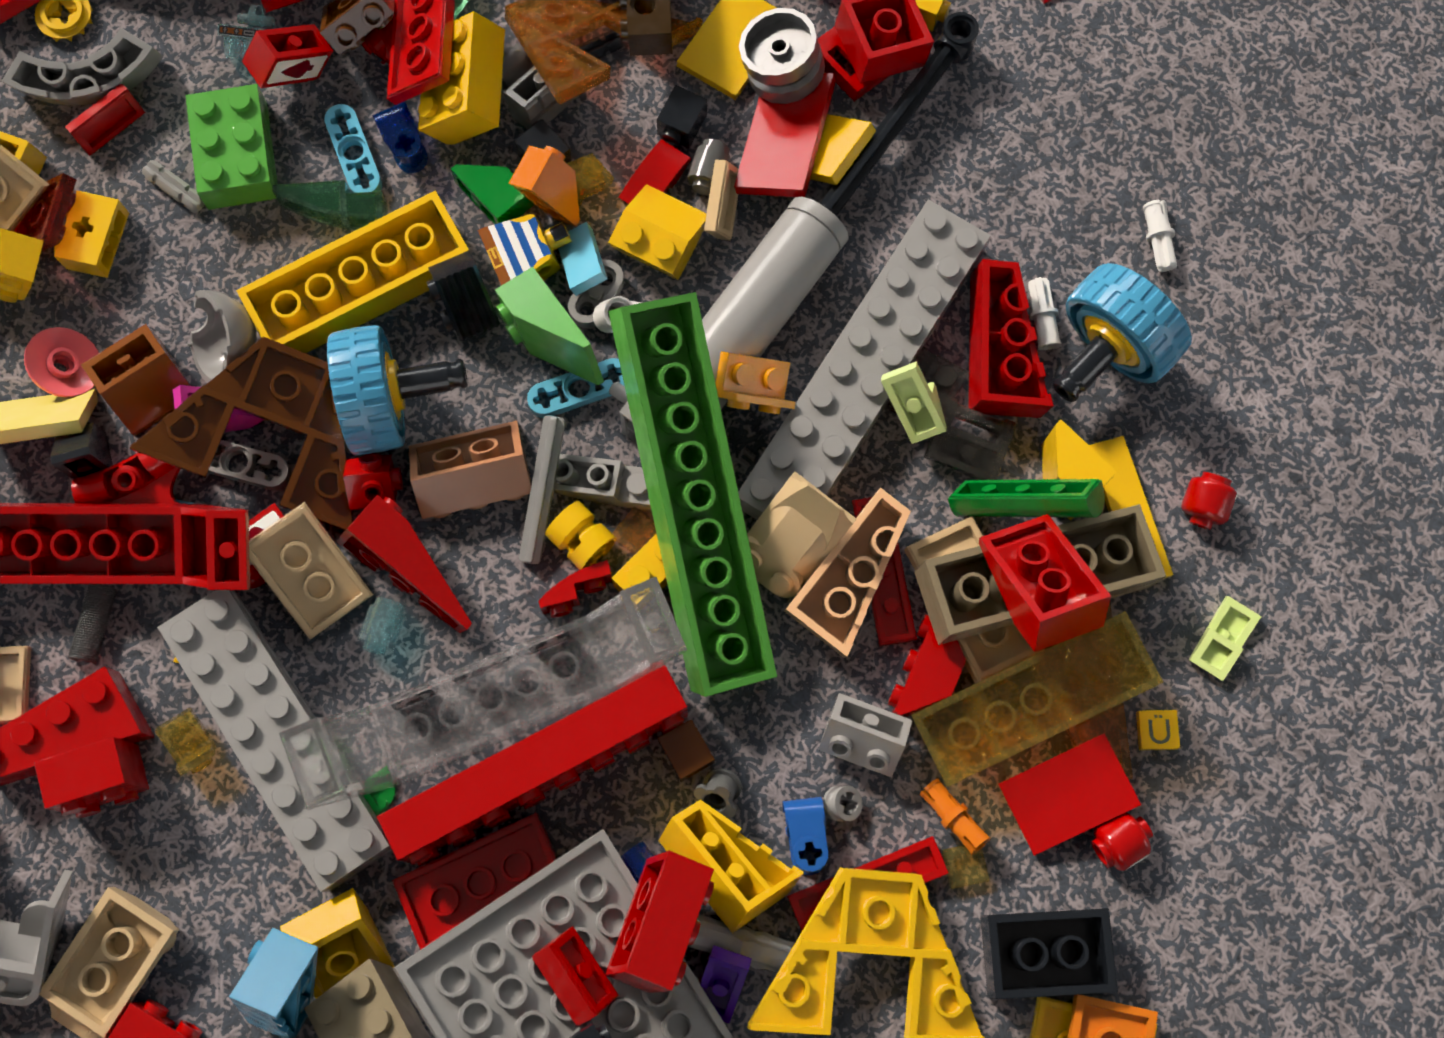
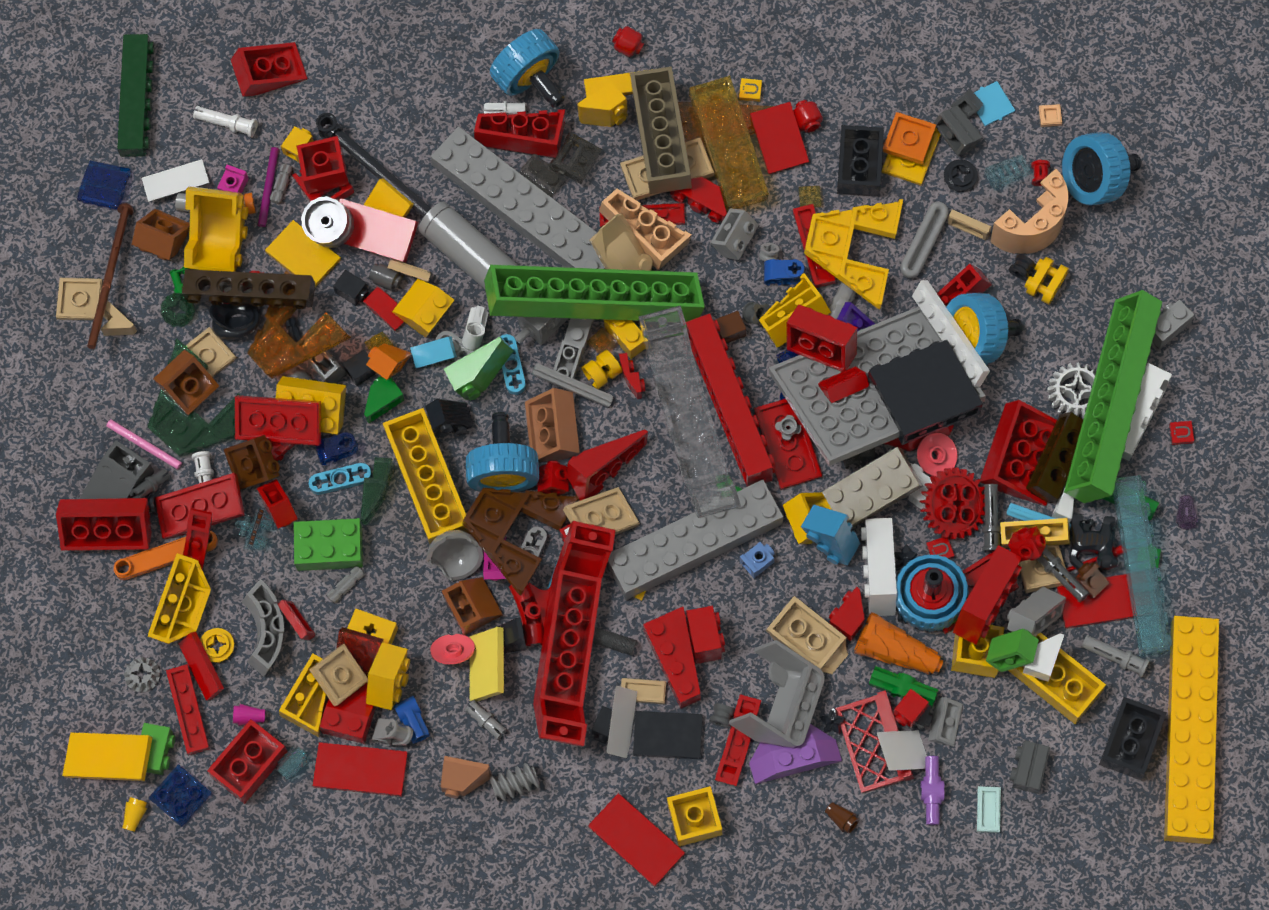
camera: 75 degrees left, 5 degrees down
(187, 742) = (690, 590): clear yellow bracket -> none
(267, 859) = (754, 565): none -> medium blue brick
(382, 626) = (638, 481): clear light blue brick -> none
(500, 867) = (788, 421): none -> light grey plate
(522, 245) = (423, 383): torso -> none
(753, 380) = (528, 256): light orange bracket -> none
(915, 402) = (553, 179): yellowish green slope -> none
(955, 816) = (783, 196): orange pin -> none
(1028, 498) = (617, 129): green brick -> none
(1045, 582) = (669, 123): red slope -> none
(1160, 234) = (467, 40): white axle -> none
(1224, 638) = (704, 48): yellowish green slope -> none

